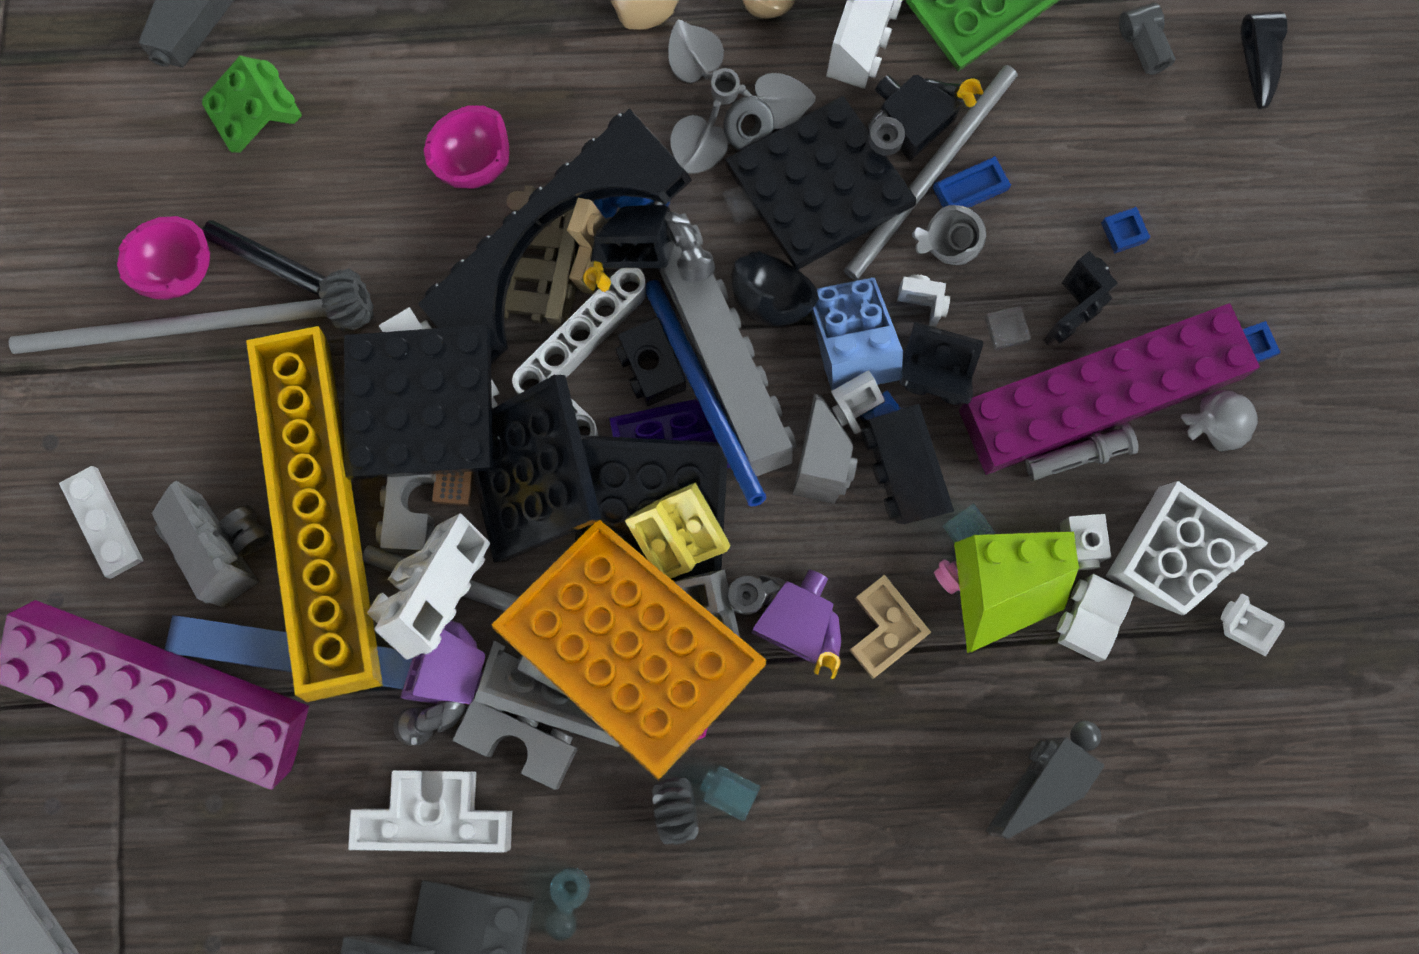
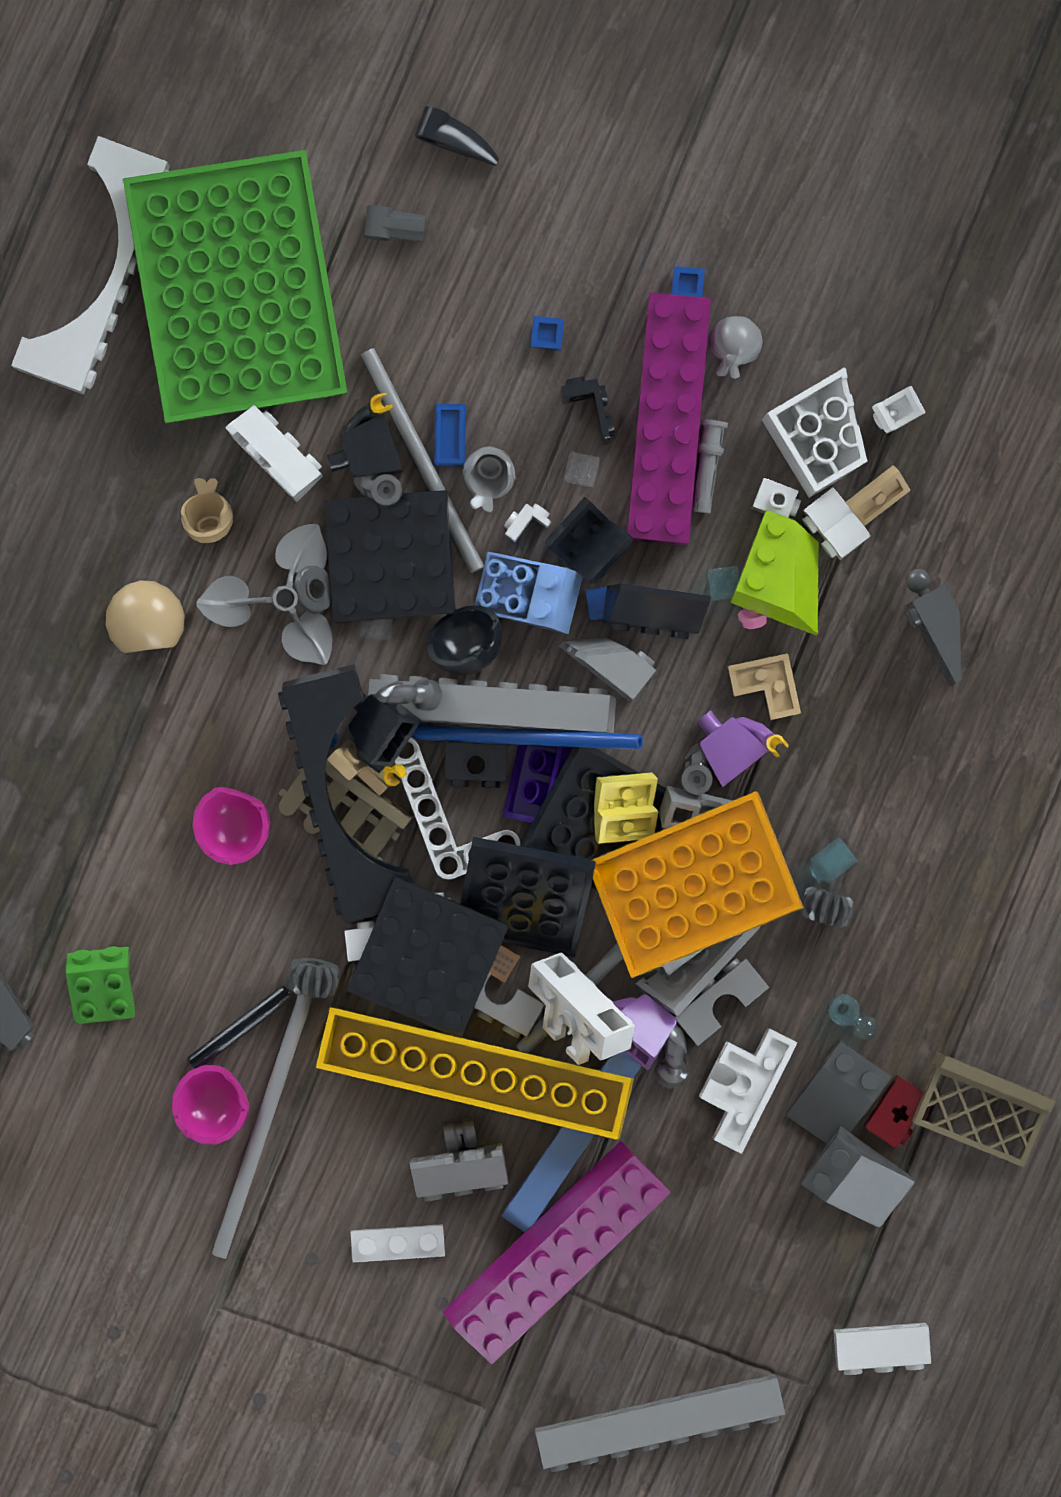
camera: 65 degrees left, 10 degrees up
(856, 399) = (583, 620): white bracket -> none
(1151, 649) = (878, 495): none -> tan plate

